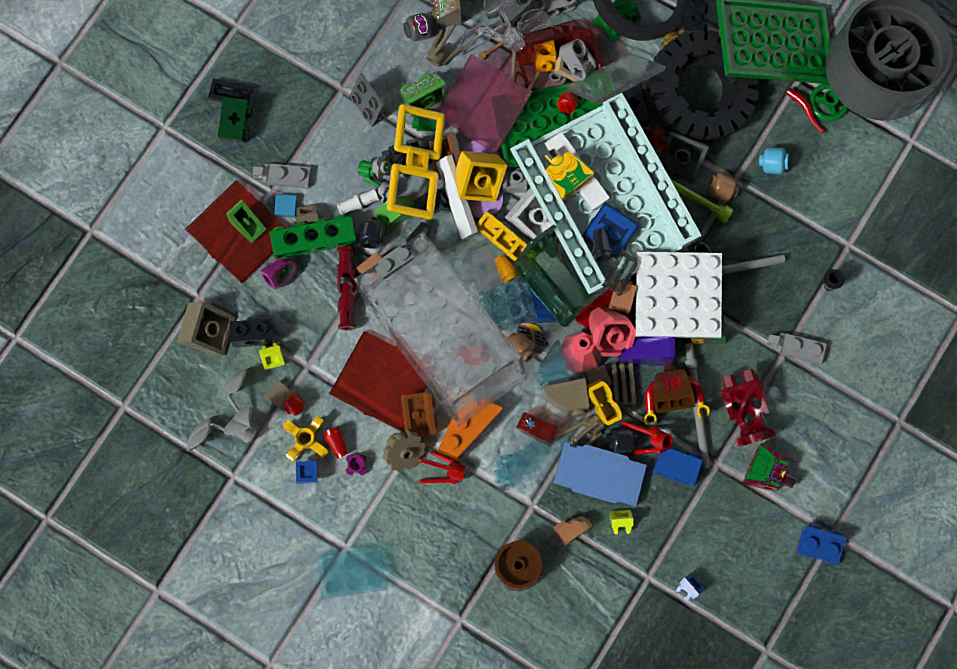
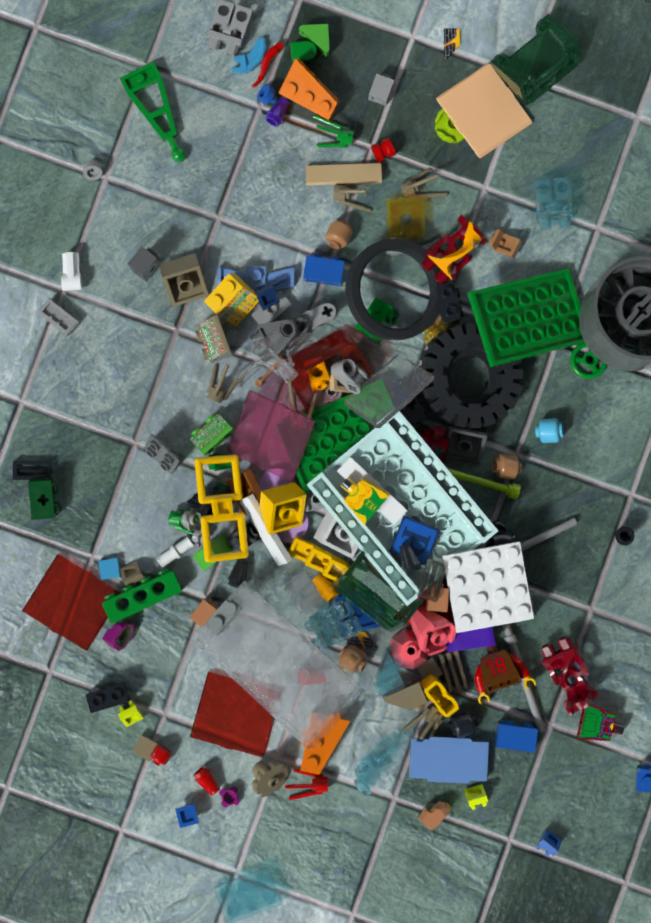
camera: 15 degrees left, 10 degrees up
(205, 328) = (64, 702): dark tan slope -> none
(239, 425) = (119, 789): light grey plant -> none
(245, 221) = (77, 595): bright green slope -> none
(283, 175) = (101, 540): light grey hinge -> none
(296, 450) = (191, 790): yellow pin -> none
(347, 300) = (186, 648): dark red piece -> none
(372, 233) = (195, 579): black head -> none
(418, 27) = (193, 370): dark grey head -> none
(419, 413) = (275, 741): dark orange bracket -> none
(514, 578) = (385, 851): reddish brown wheel -> none
(537, 428) = (384, 729): clear red leg -> none
(567, 102) = (348, 418): red piece -> none
(658, 439) = (497, 720): red plant -> none
(798, 347) = (603, 602): light grey hinge -> none
(803, 102) = (564, 365): red animal -> none

